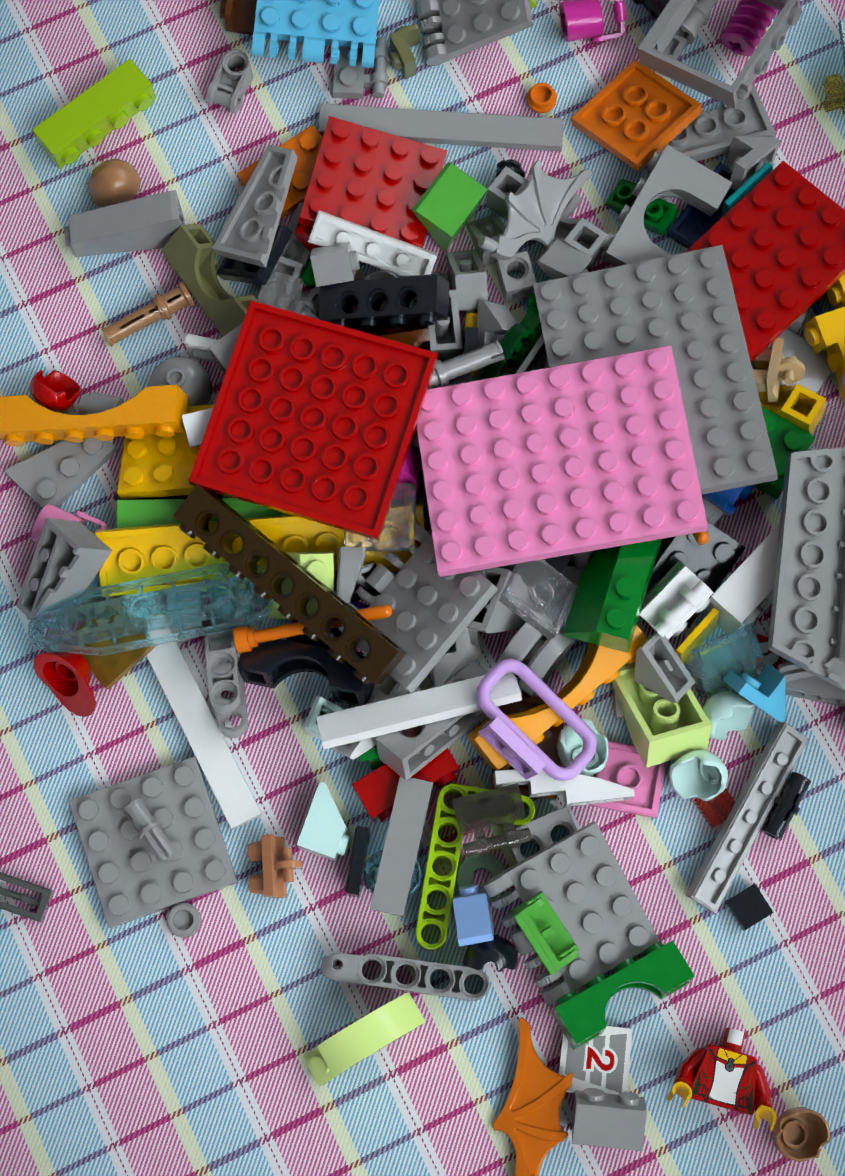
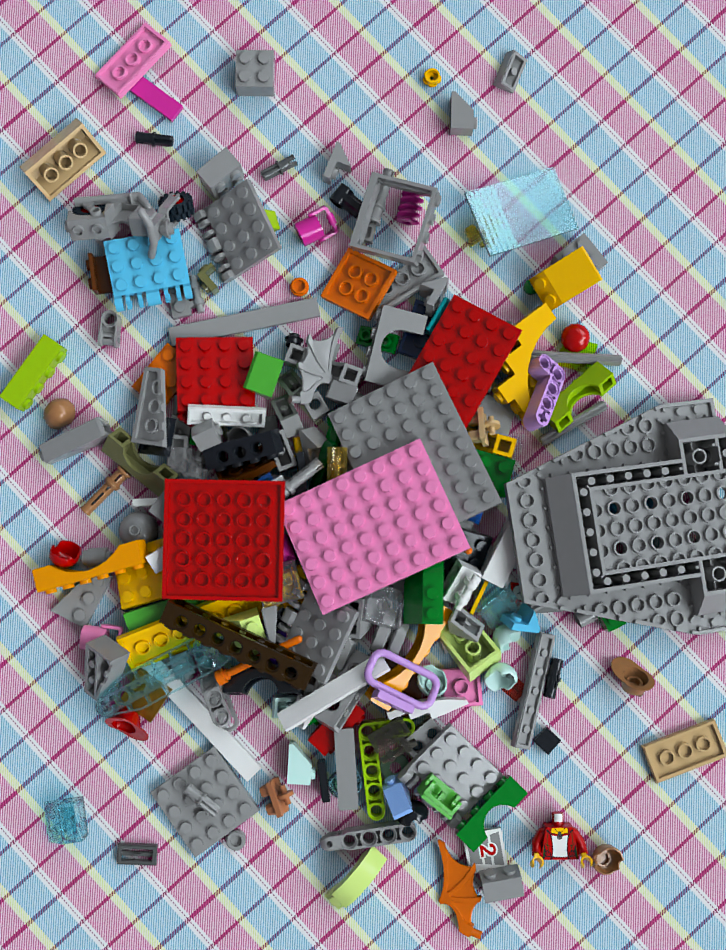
camera: 20 degrees left, 10 degrees up
(527, 351) = (336, 462): none -> clear yellow hips

